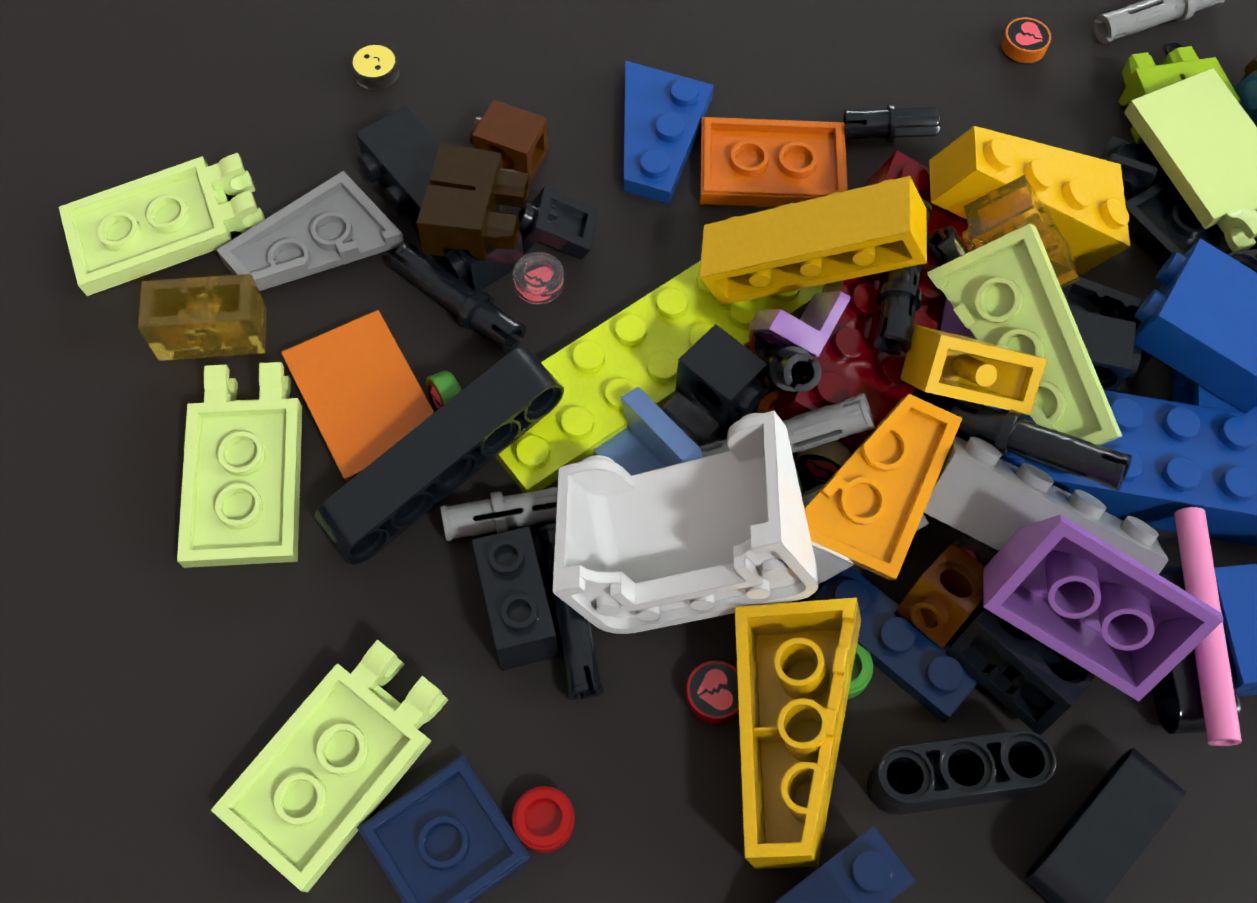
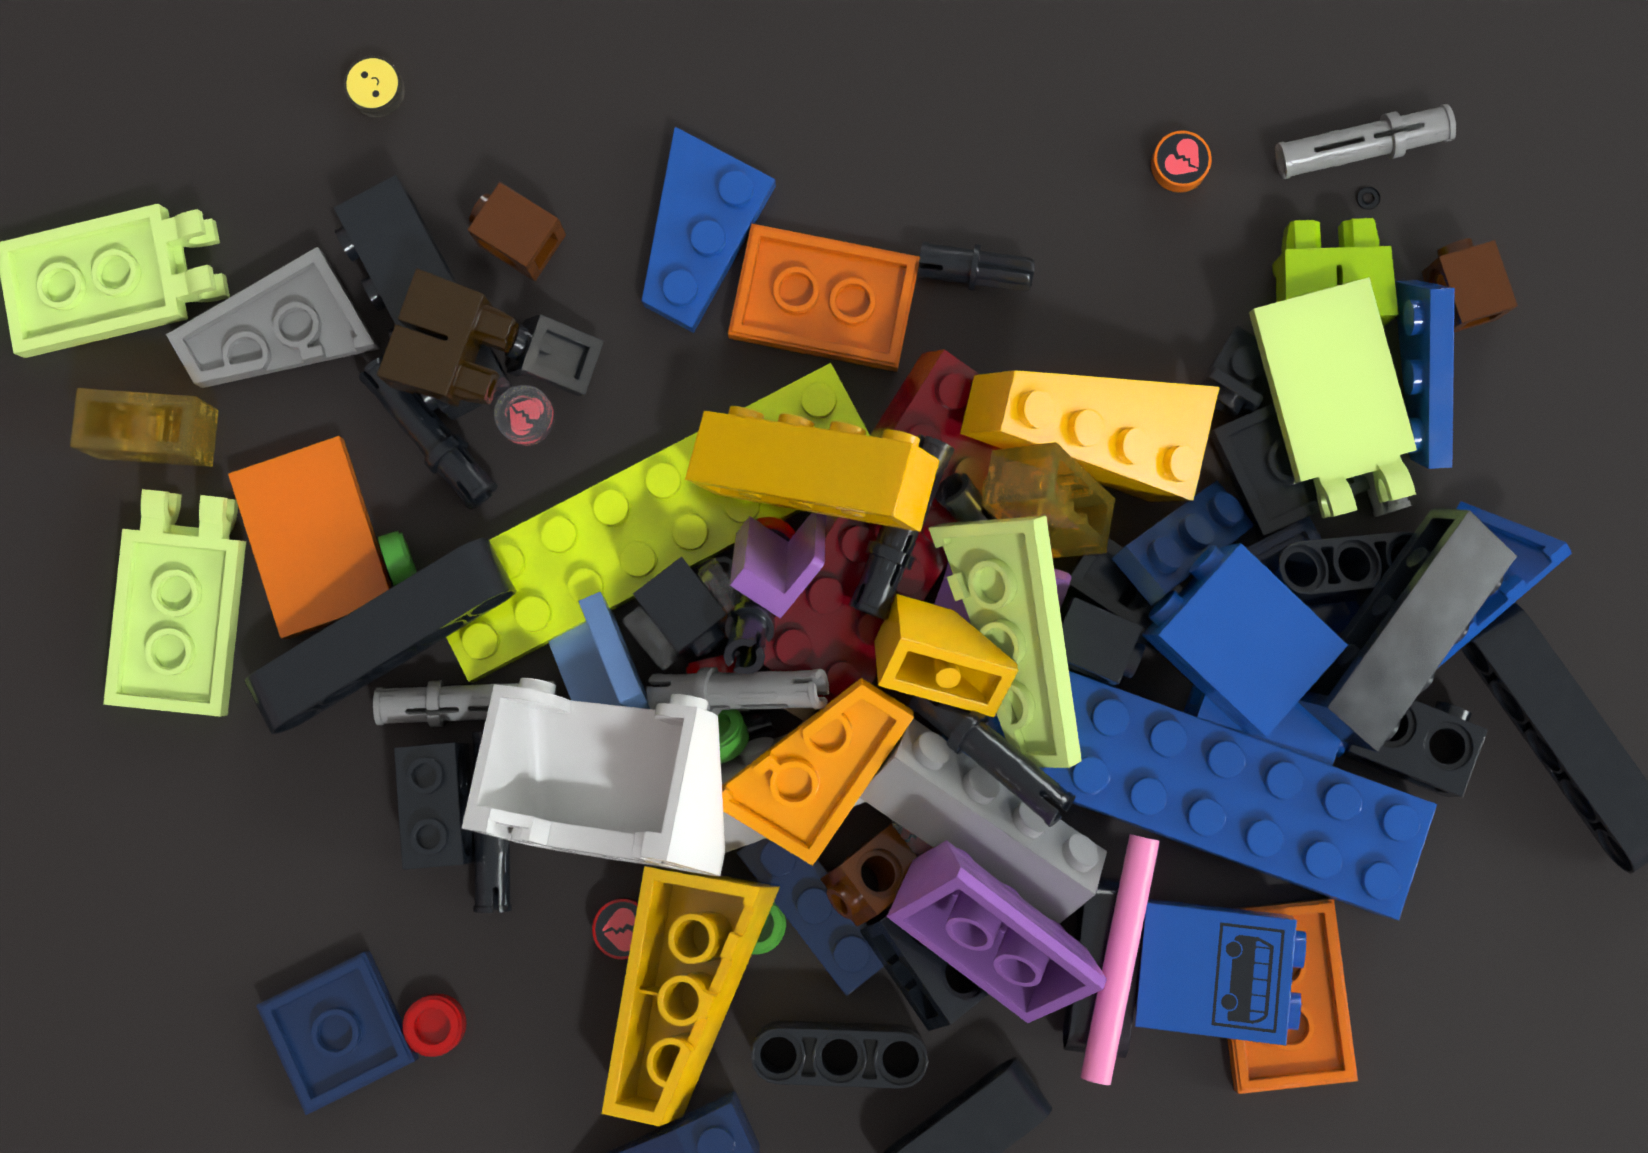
camera: 15 degrees right, 20 degrees up
(330, 767) = (238, 940): yellowish green tile -> none
(1131, 272) = (1166, 551): none -> dark blue plate

